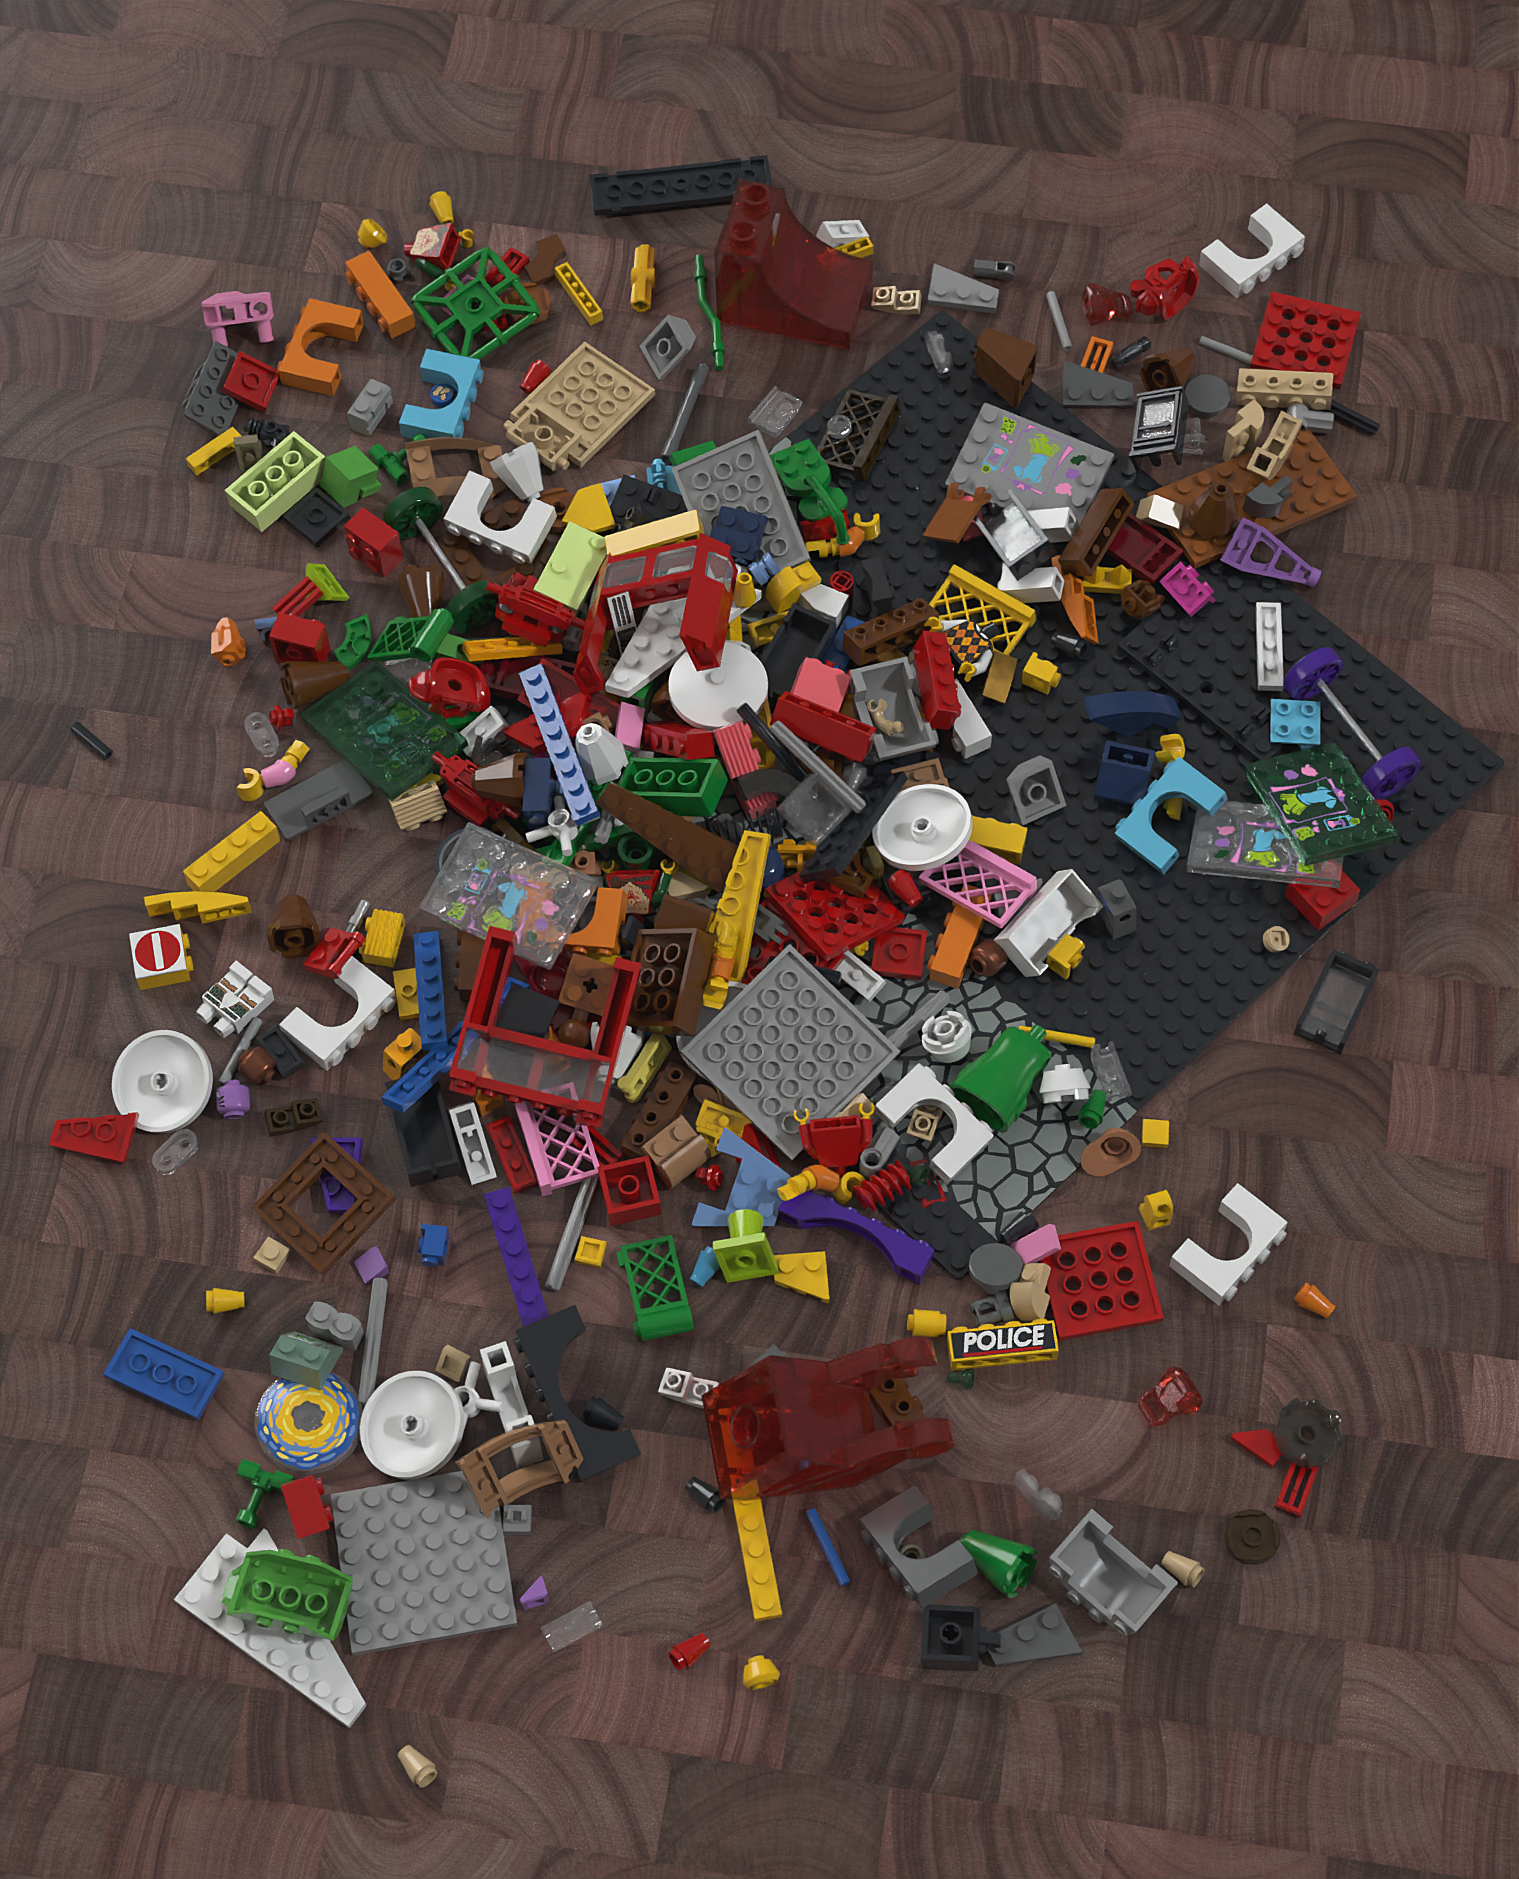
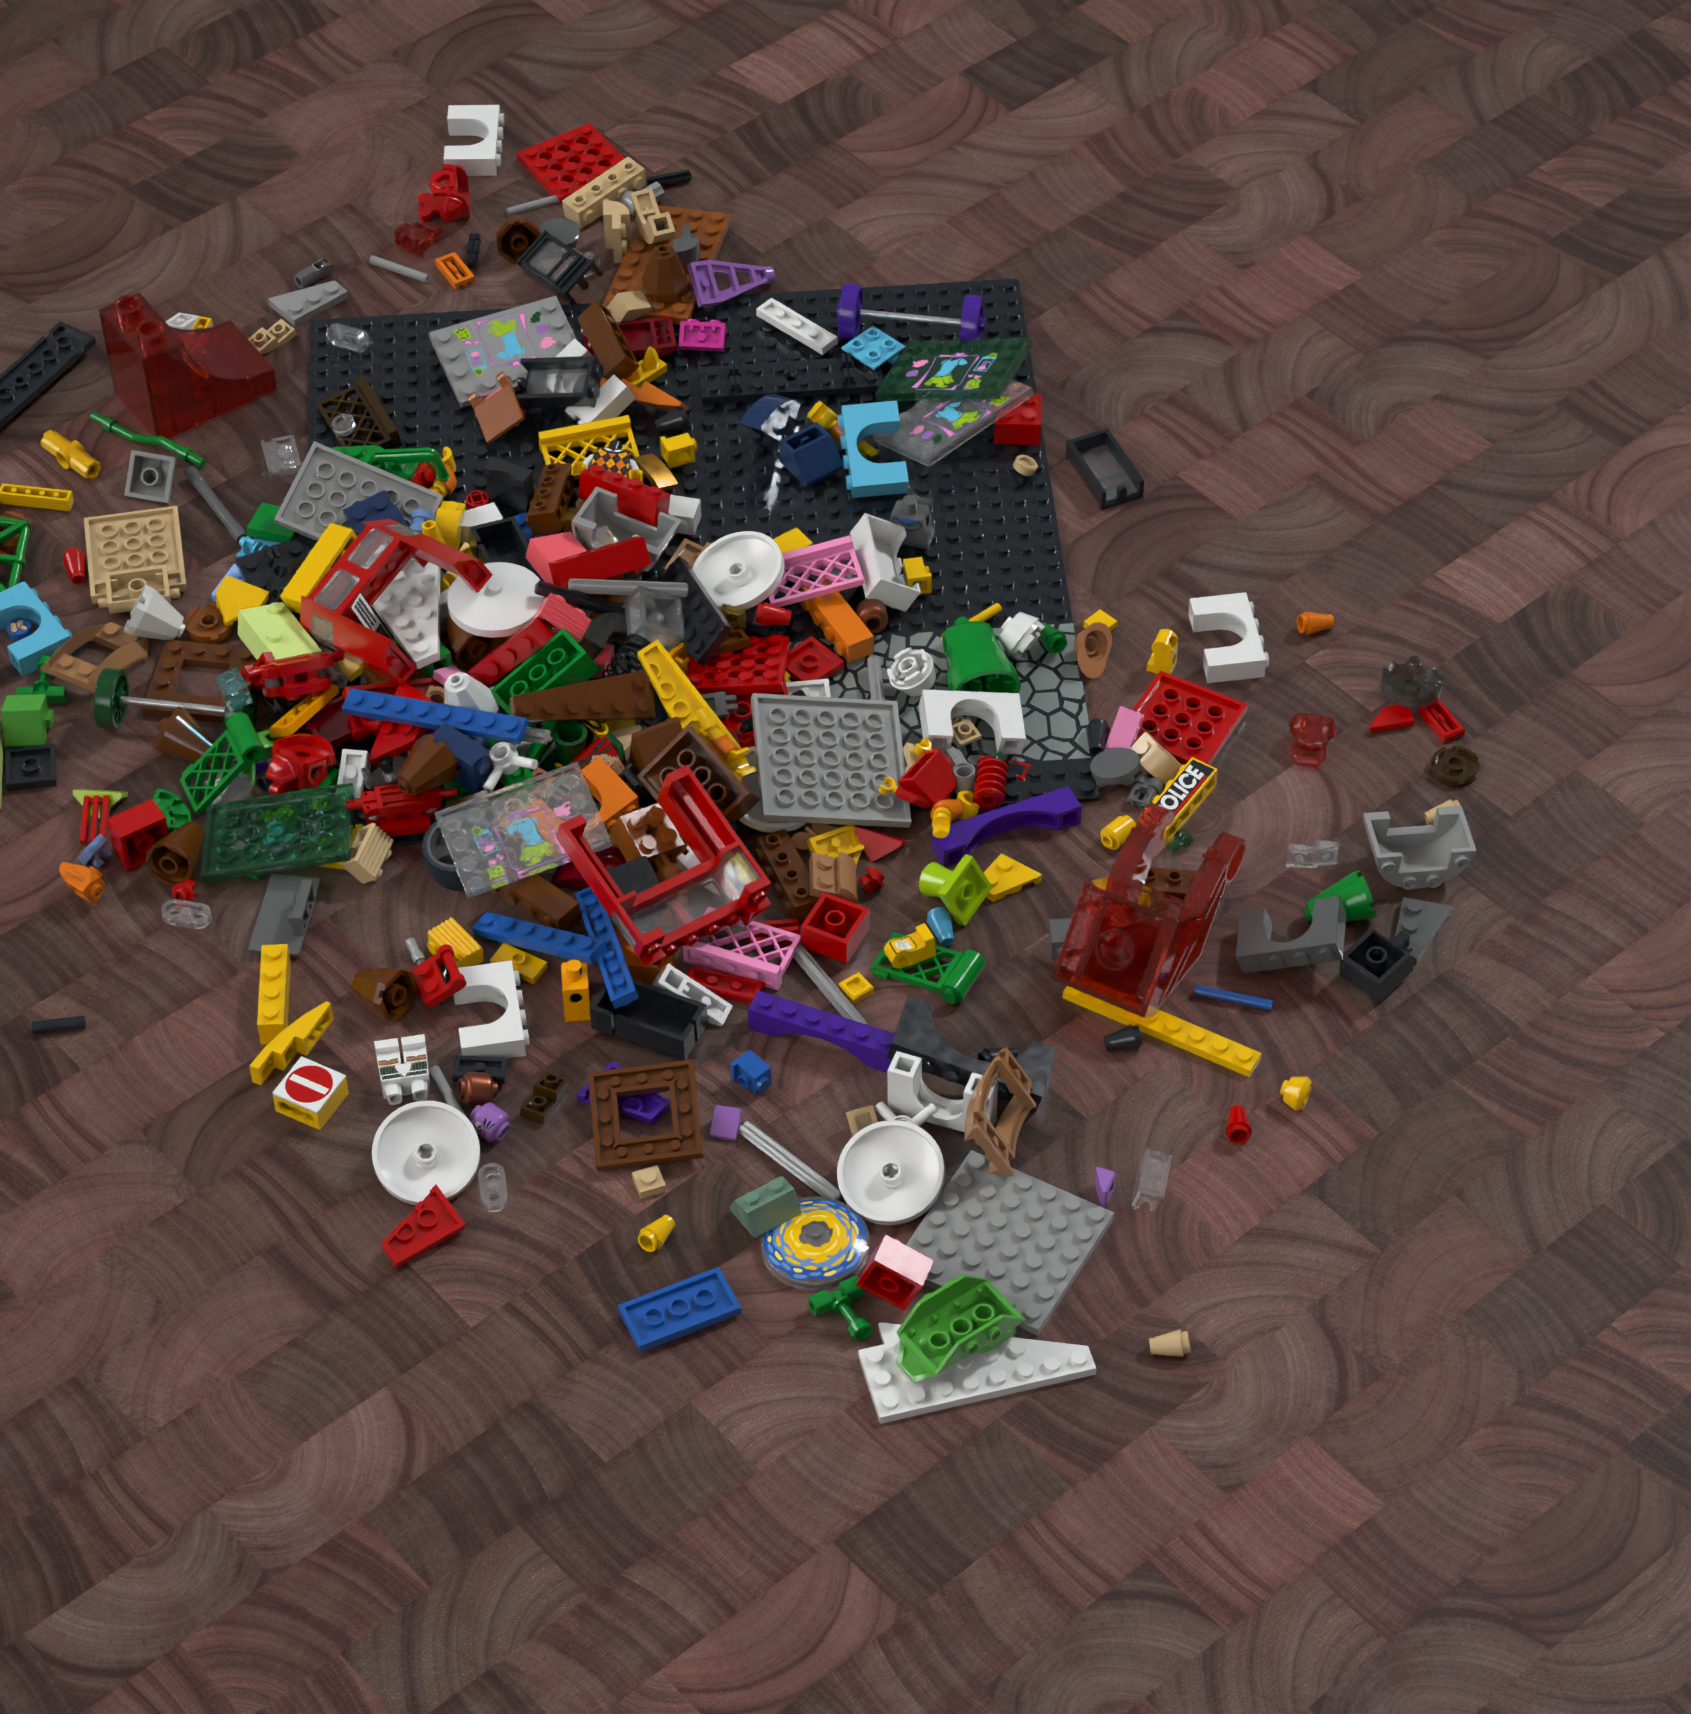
camera: 50 degrees left, 15 degrees down
(274, 775) = (233, 927): yellow piece -> none
(330, 1325) = (753, 1172): light grey brick -> none
(373, 542) = (105, 738): red brick -> none
(465, 588) = (233, 689): none -> clear light blue brick
(517, 1520) = (1030, 1162): light grey tile -> none
(519, 542) = (159, 670): white arch -> none
(655, 1263) = (911, 948): none -> yellow leg
(684, 1387) = (1030, 999): white slope -> none
(753, 1188) = (908, 852): medium blue wing -> none
(1005, 364) = (408, 306): reddish brown slope -> none
(1035, 789) = (768, 505): light grey slope -> none
(1093, 389) = (479, 285): dark grey wing -> none
(1110, 1072) = (1015, 605): clear hinge -> none
(1140, 600) = (683, 365): reddish brown hand -> none

